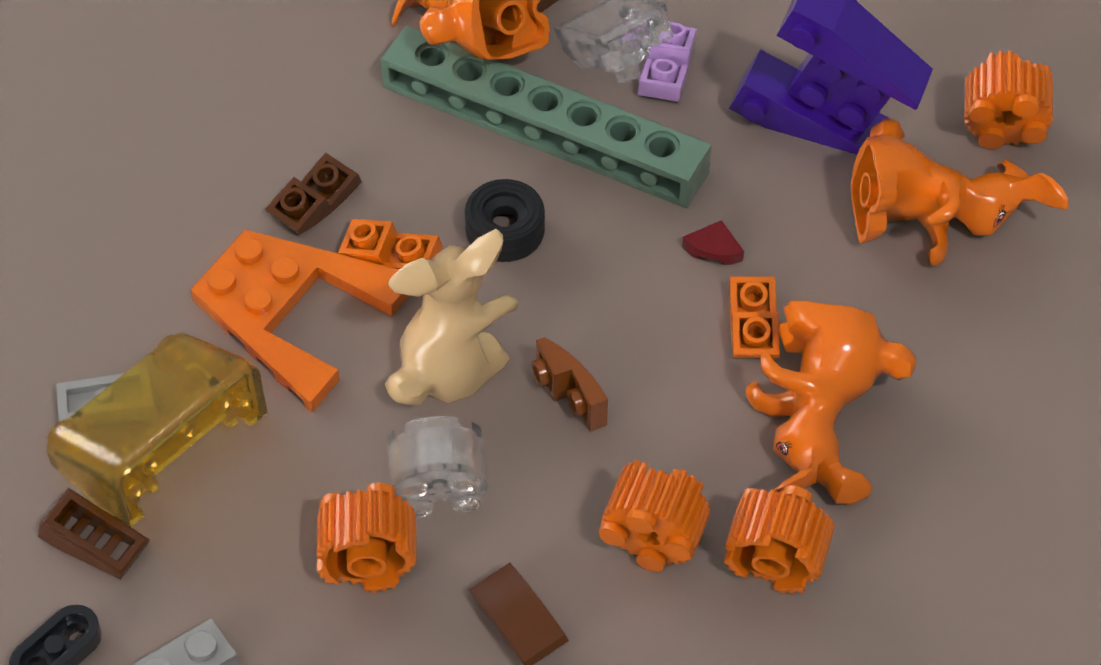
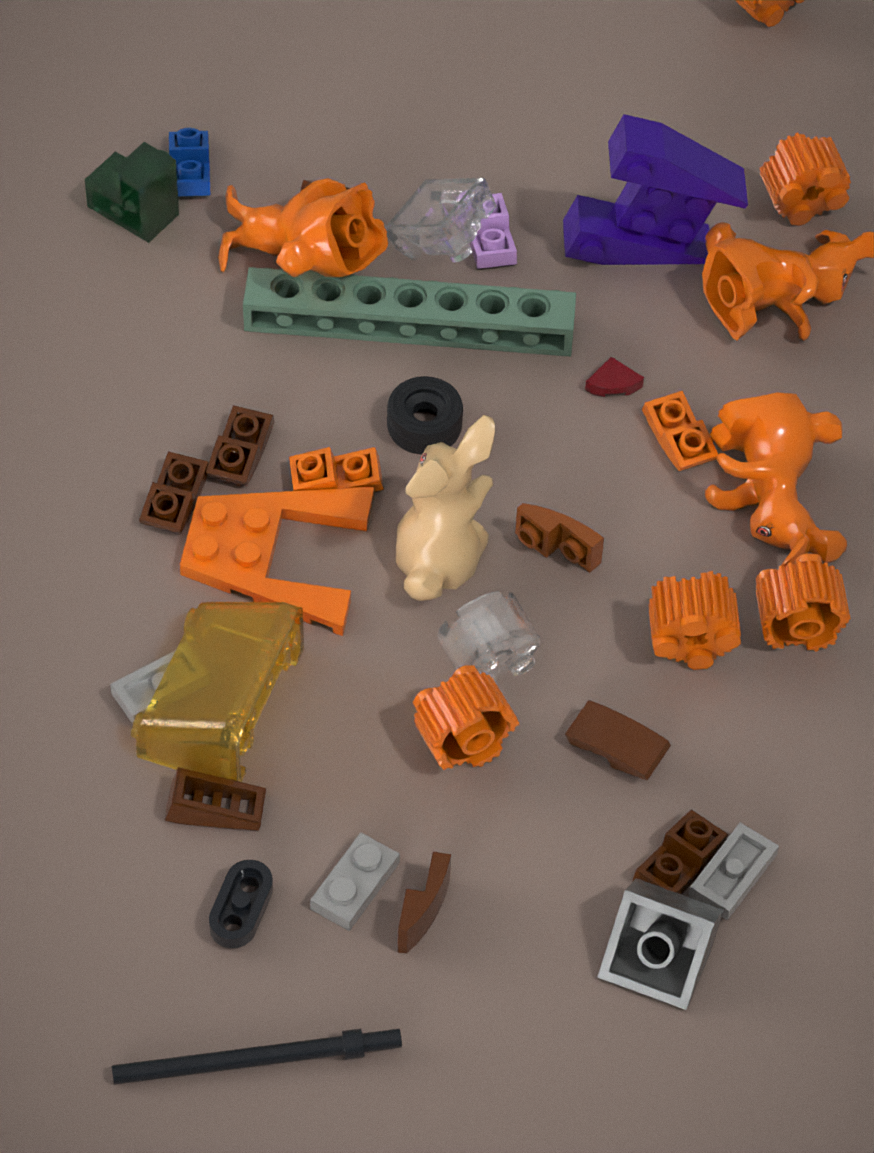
camera: 25 degrees left, 0 degrees up
(218, 226) = (175, 493): none -> reddish brown slope

